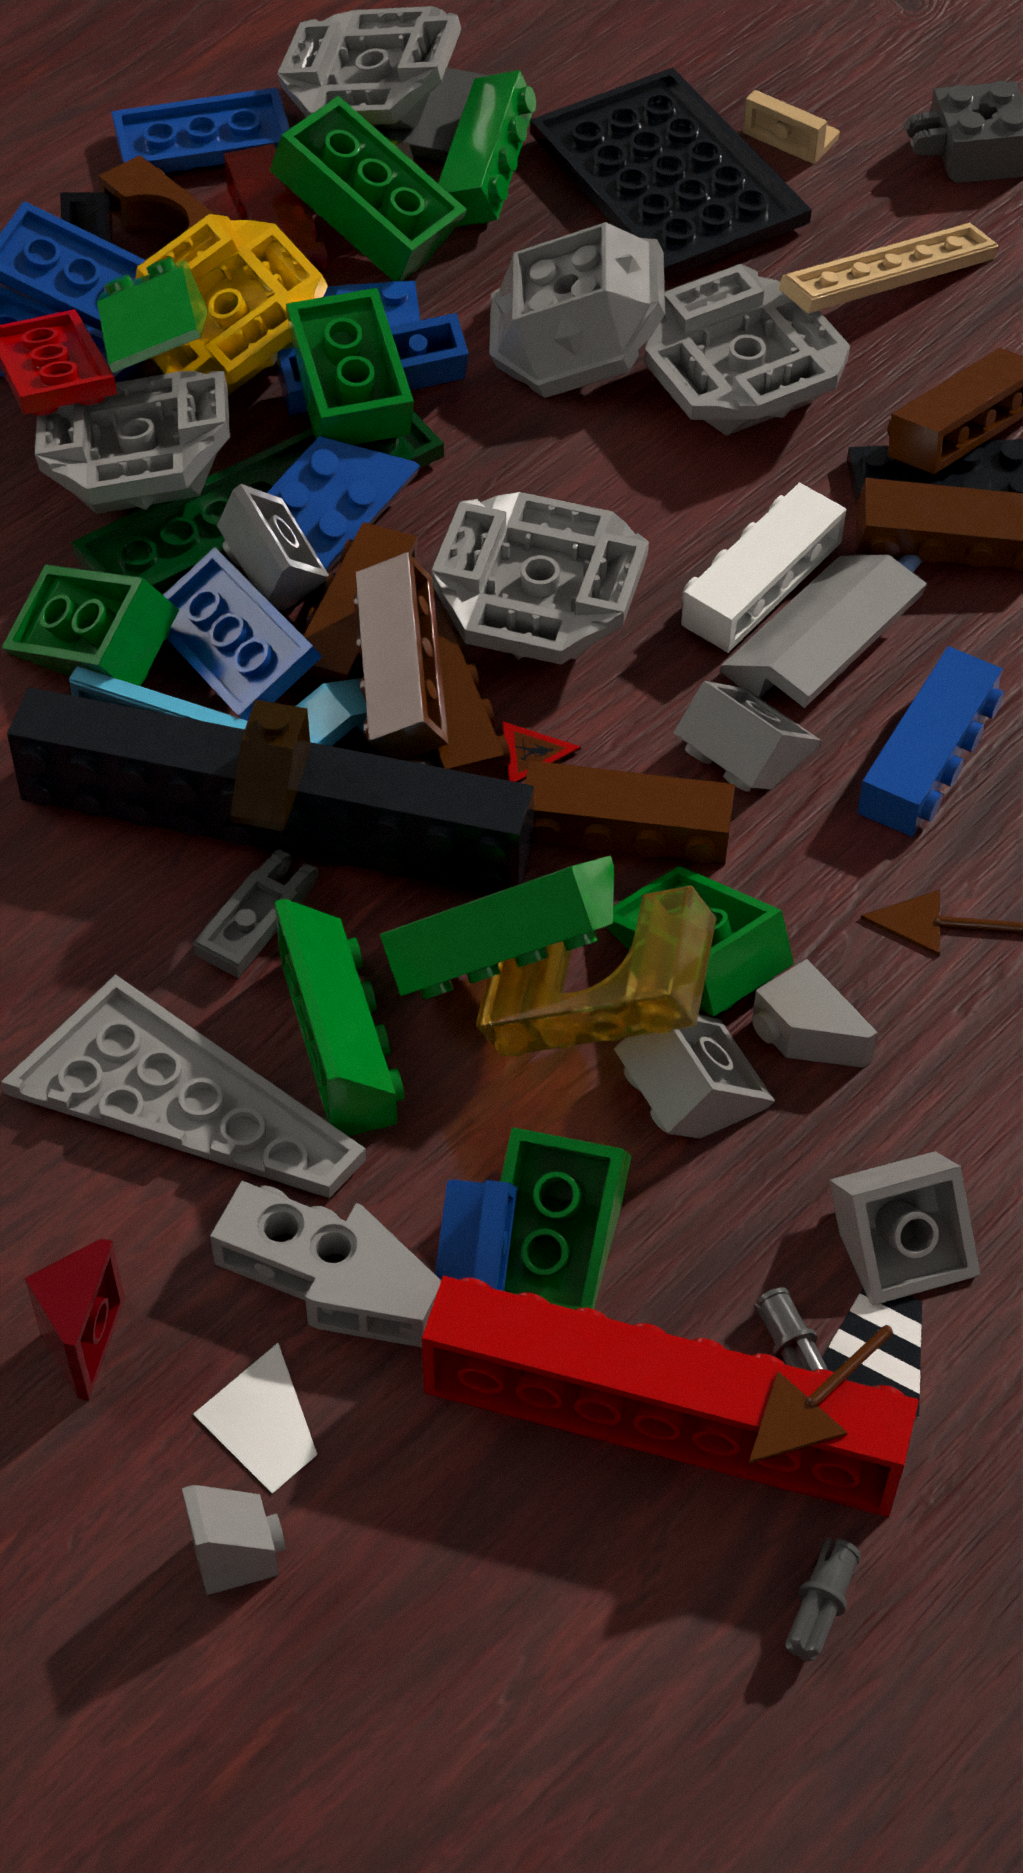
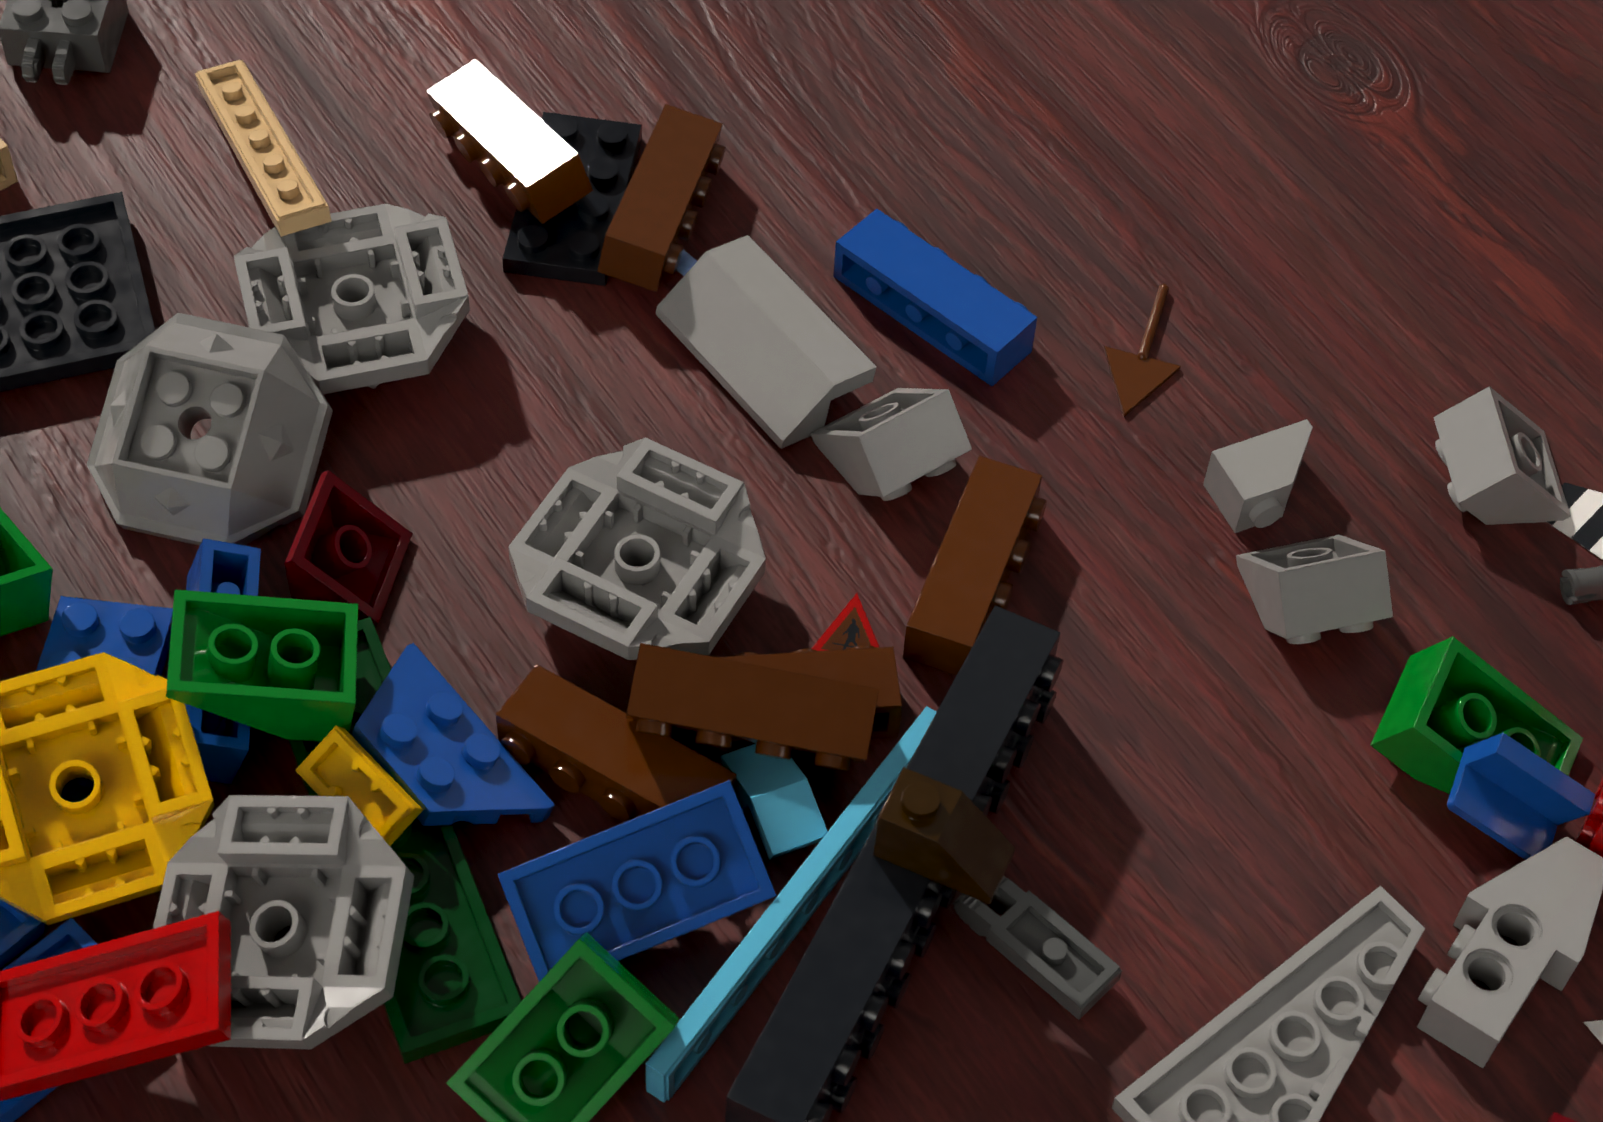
camera: 80 degrees left, 0 degrees up
(150, 313) = (112, 855): green slope -> none
(270, 547) = (524, 815): light grey slope -> none
(273, 456) = (346, 769): none -> yellow plate
(337, 1020) = (1220, 885): green slope -> none
(500, 412) = (345, 550): none -> dark red slope
(502, 927) = (1154, 681): green slope -> none
(649, 992) = (1286, 558): clear yellow arch -> none
(747, 940) = (1145, 541): green slope -> none
(762, 566) = (668, 366): white brick -> none

